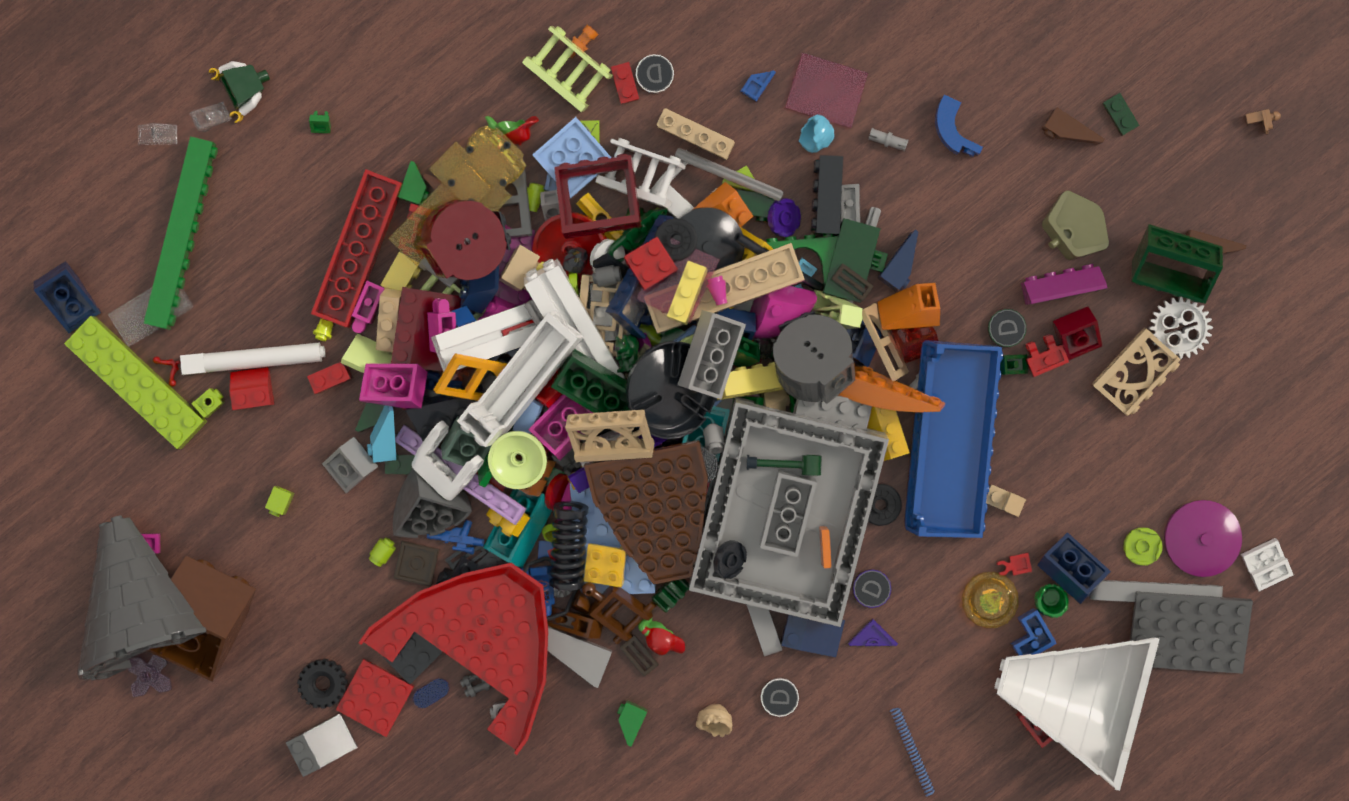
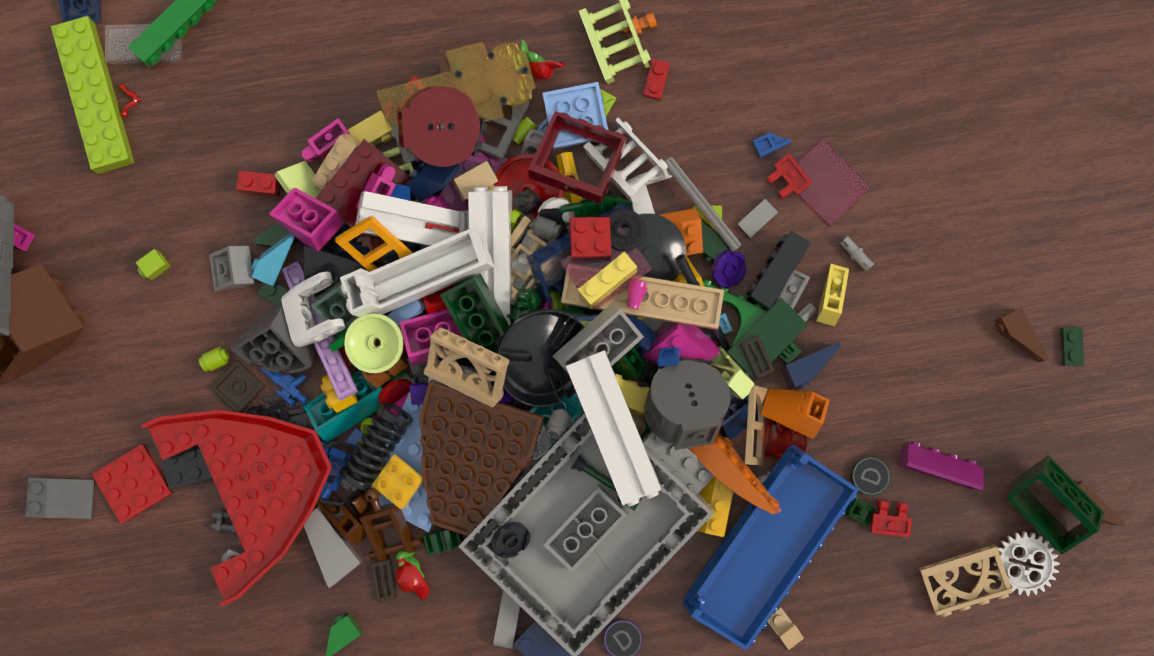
camera: 30 degrees right, 5 degrees down
(203, 408) = (150, 150): lime brick -> none
(251, 358) = (202, 130): white brick -> none
(251, 388) = (186, 156): red slope -> none
(308, 687) = (79, 444): black tyre -> none
(323, 330) = (277, 141): neon yellow hose -> none
(357, 248) = (348, 86): red brick -> none
(413, 187) = (427, 62): green slope -> none
(431, 693) = (183, 507): clear blue tile -> none
(654, 73) = (686, 85): black tile -> none
(695, 133) = (693, 153): tan fence -> none
(765, 417) = (614, 429): none -> white brick
(776, 327) = (669, 356): none -> blue tile
(784, 157) = (757, 218): none -> light grey tile
(793, 101) = (793, 175): none -> red plate
(816, 134) = (797, 213): medium azure hair -> none
(825, 547) = (601, 578): orange tile -> none
(887, 188) = (833, 295): none -> light yellow slope
(892, 508) = (681, 577): black wheel -> none
(947, 130) = (913, 273): blue arch -> none
(1076, 226) = (980, 422): olive animal -> none
(1078, 332) = (932, 516): dark red slope -> none

